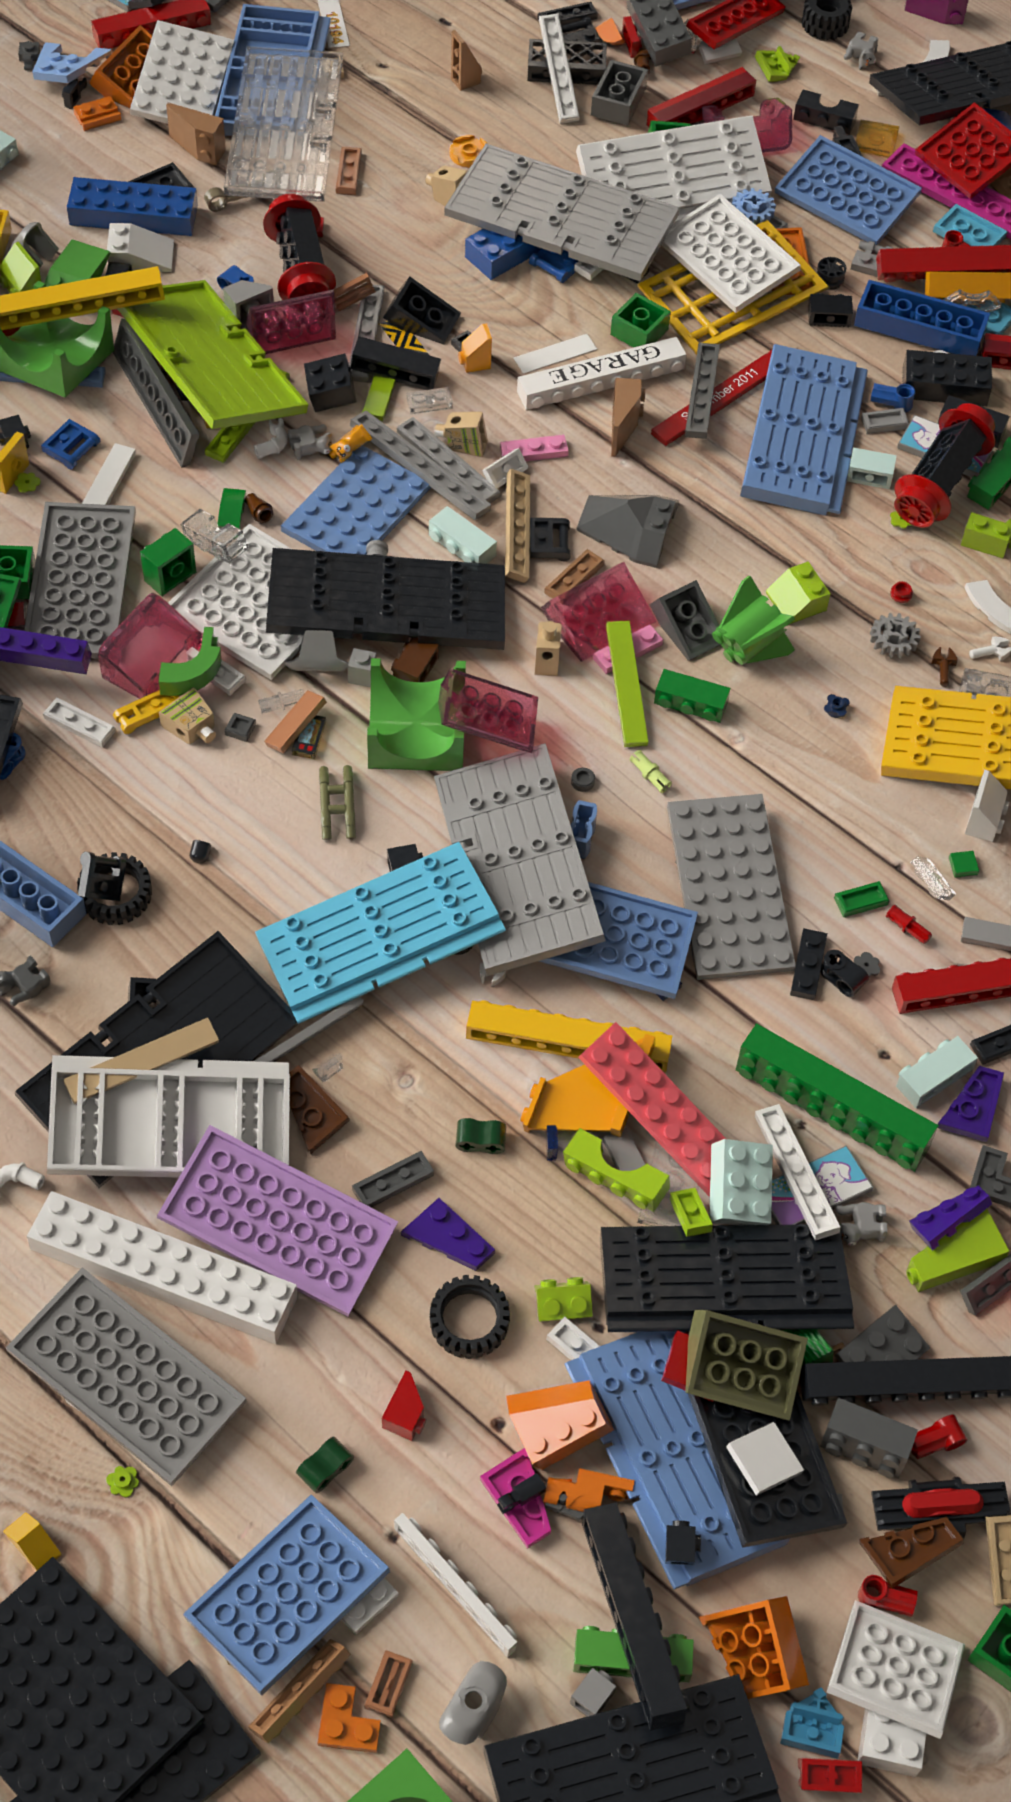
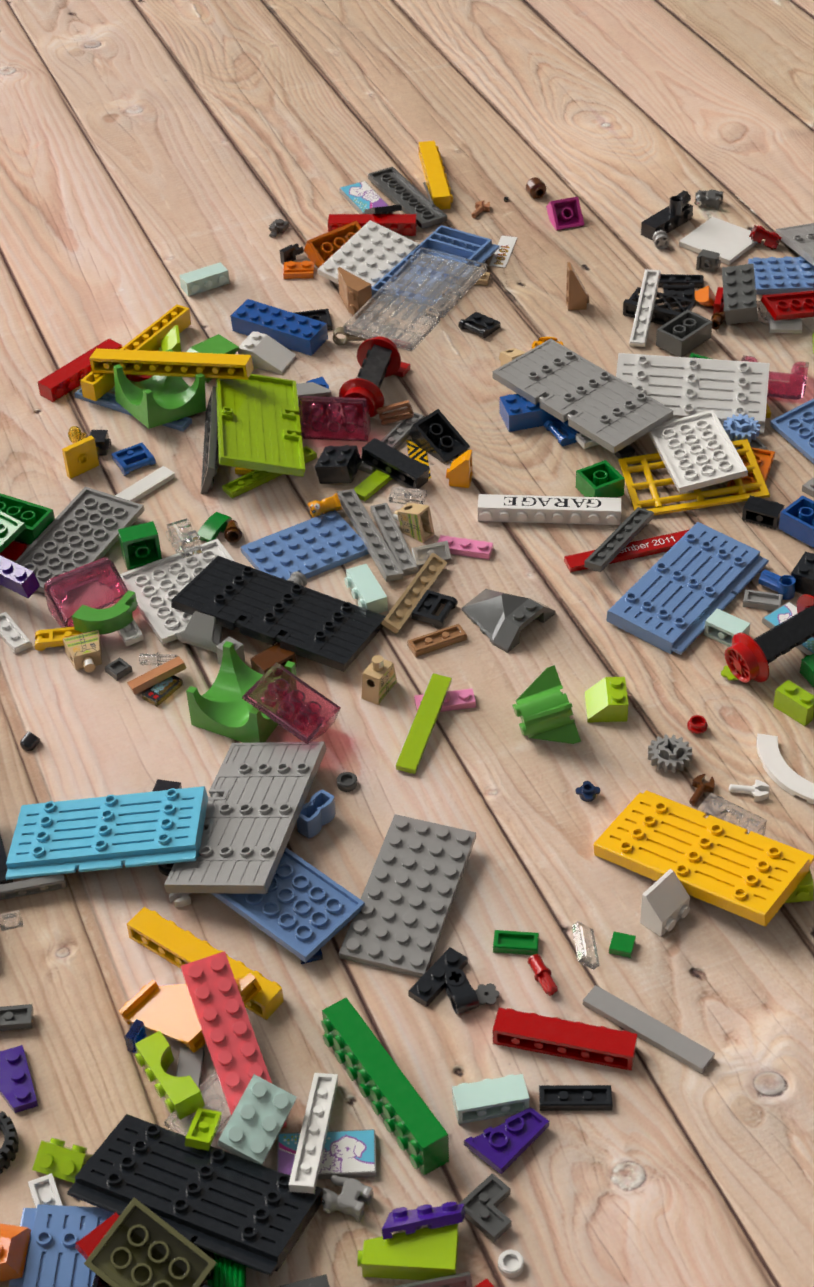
camera: 30 degrees right, 15 degrees down
(27, 482) = (87, 474): lime plant -> none
(38, 239) = (194, 328): light grey piece -> none
(65, 68) = (292, 235): light blue wing -> none
(274, 445) = (274, 495): white piece -> none
(306, 443) = (299, 497): light grey animal -> none
(347, 808) = (150, 745): olive piece -> none
(348, 170) = (450, 341): nougat tile -> none
(371, 137) = (480, 324): none -> black plate
(481, 1136) = (85, 1011): dark green axle -> none
(555, 353) = (526, 489): white sticker -> none
(594, 603) = (442, 656): clear pink slope -> none
(626, 411) = (545, 538): medium nougat slope -> none
(650, 771) = (402, 791): yellowish green pin -> none
(687, 619) = (500, 689): dark grey slope -> none
(692, 695) = (471, 747): green brick -> none
(720, 92) = (765, 351): brick -> none
(831, 272) = (780, 487): black wheel -> none

